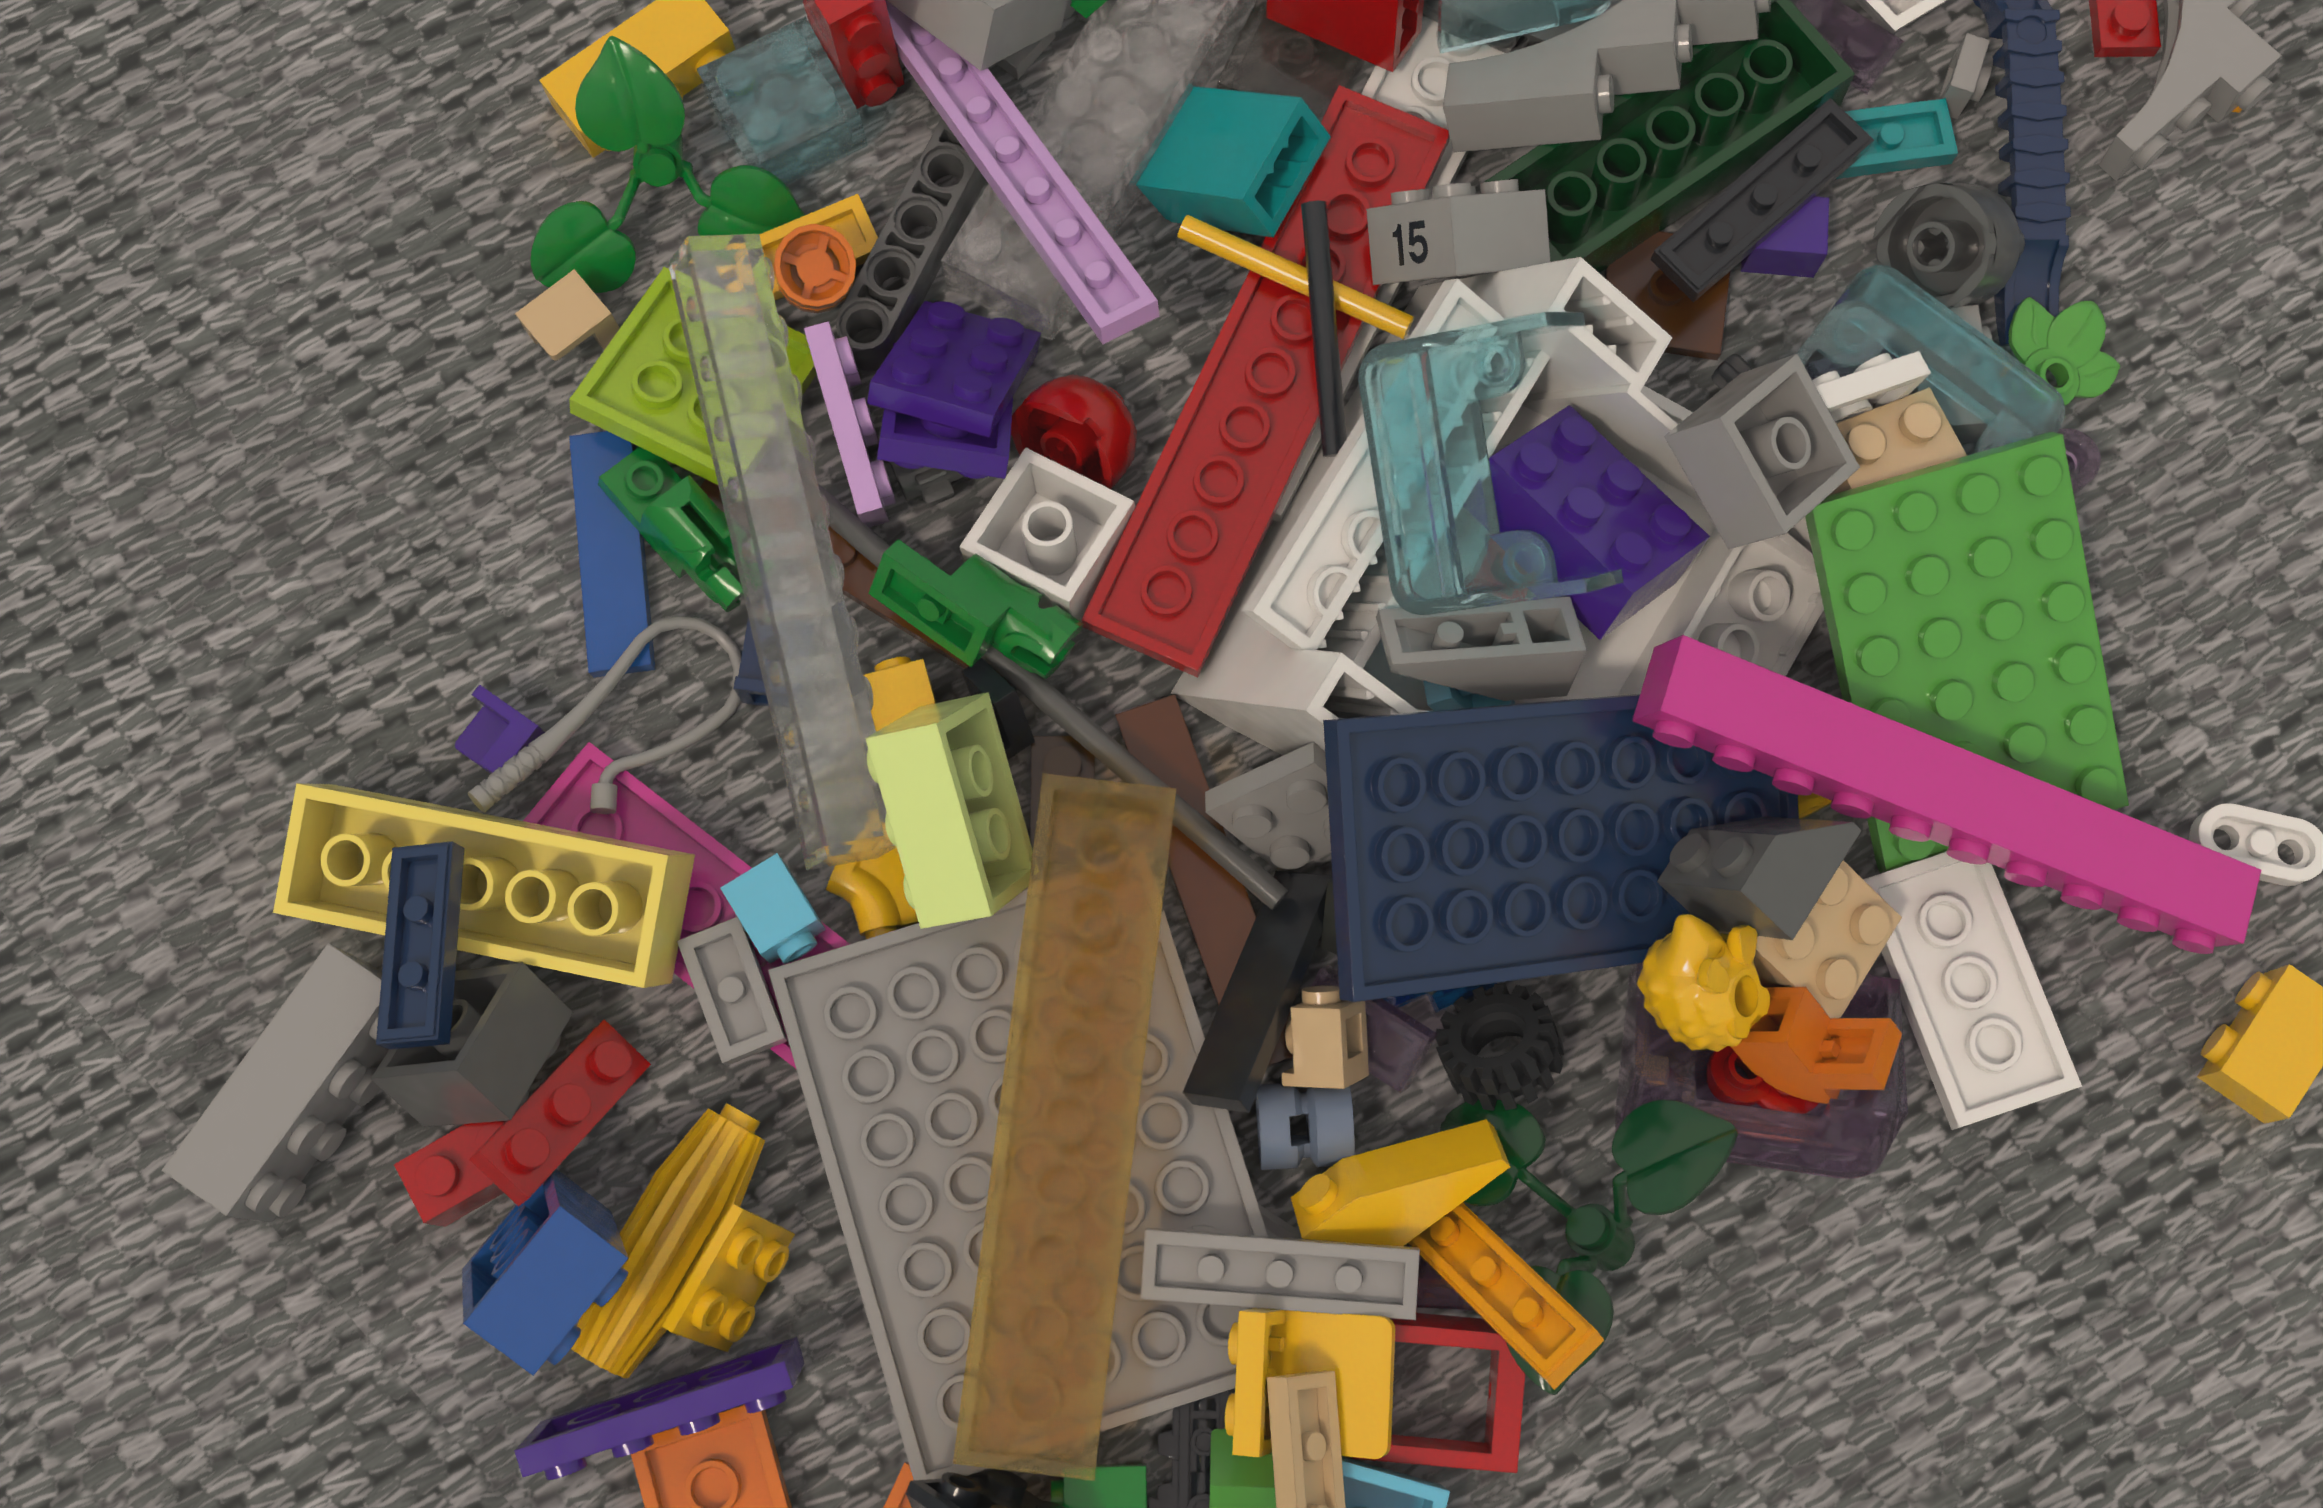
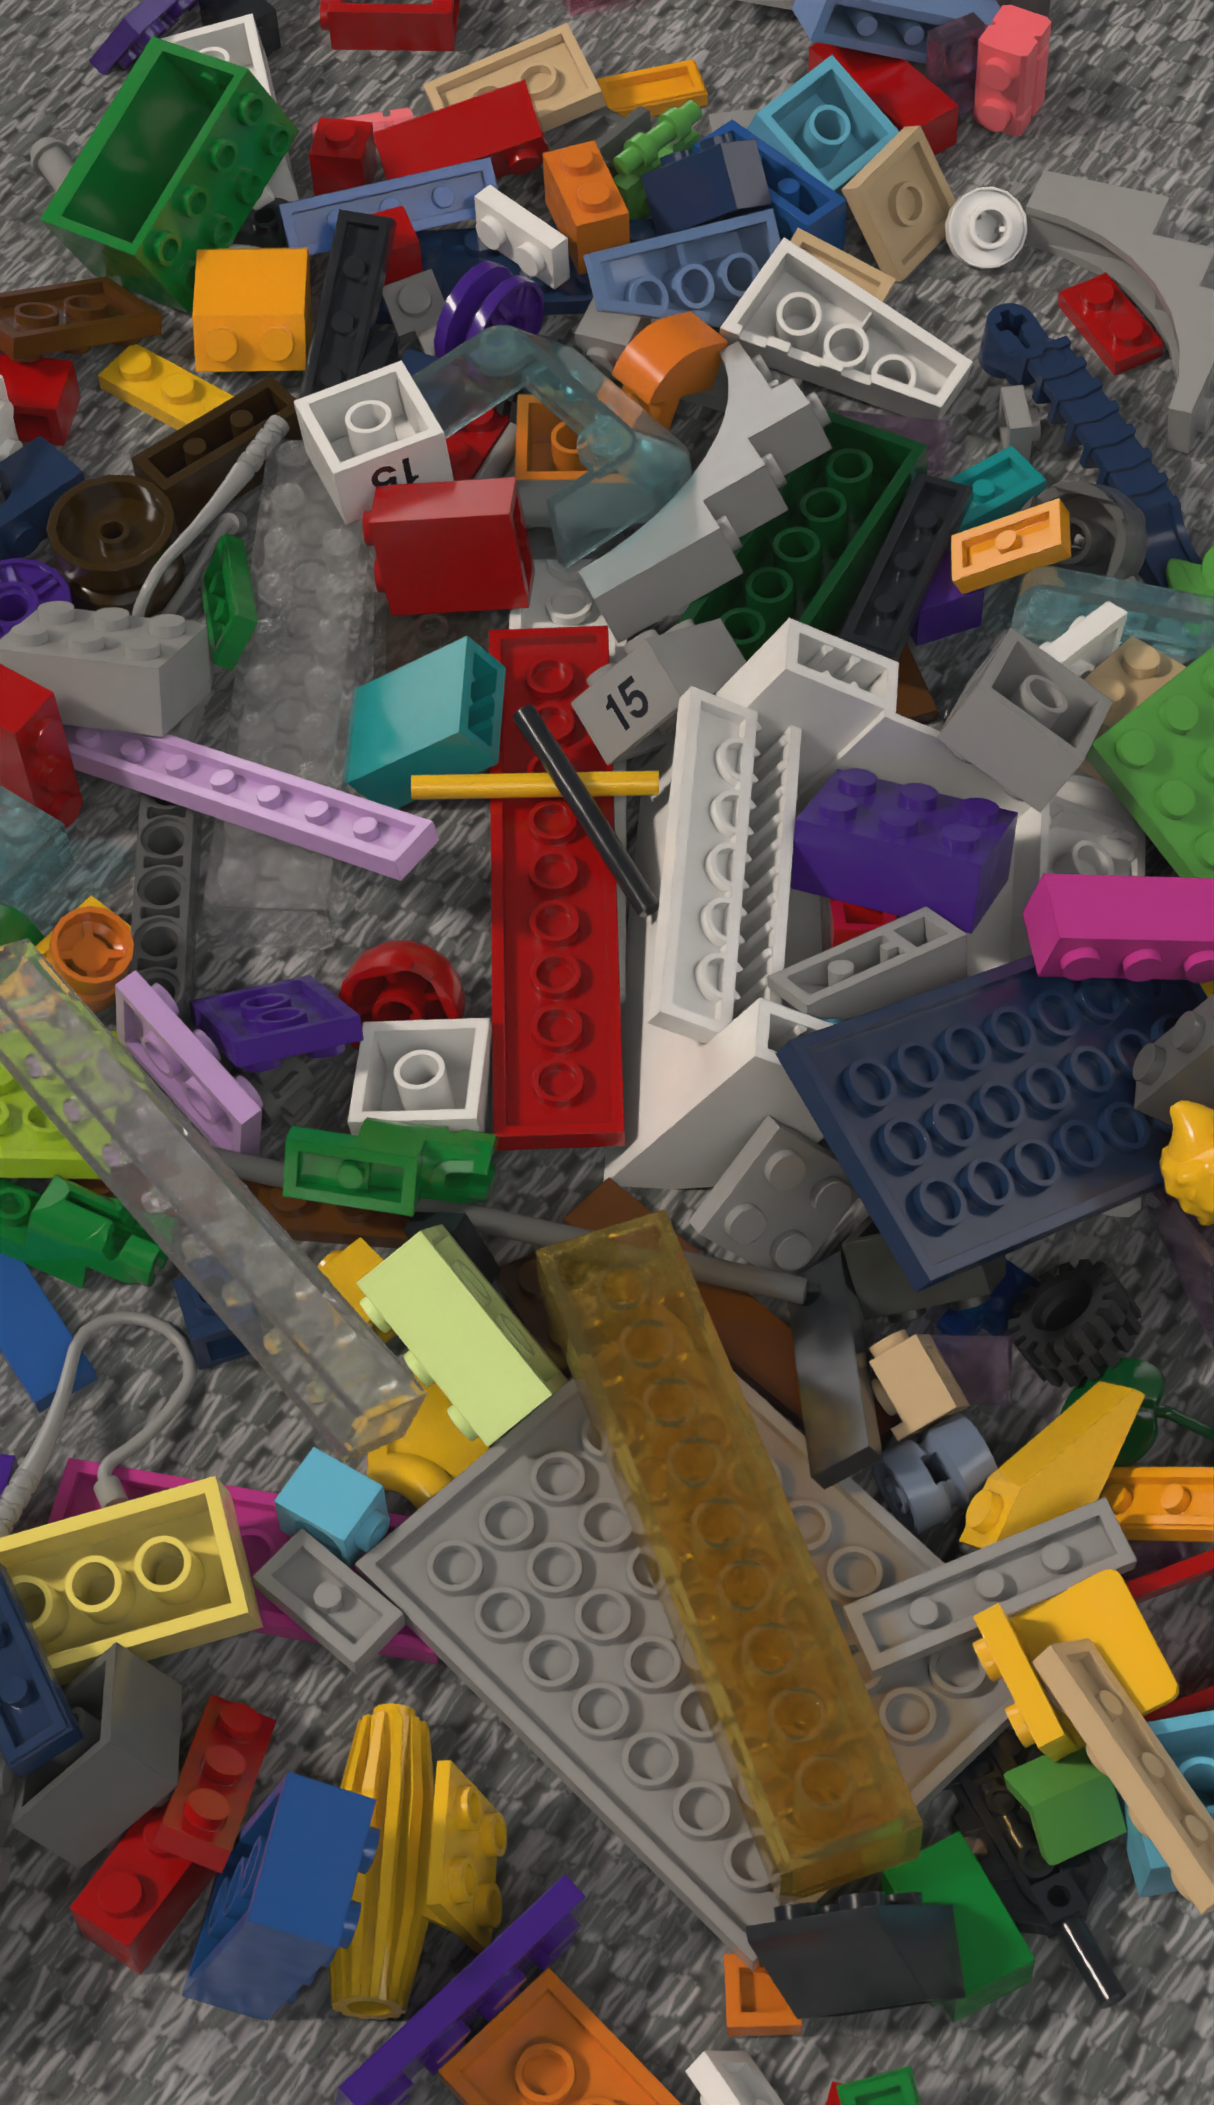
camera: 25 degrees left, 20 degrees down
(955, 368) = (262, 985): dark purple plate -> none
(1437, 475) = (718, 795): clear light blue windscreen -> none
(1871, 228) = (1010, 546): none -> light orange plate

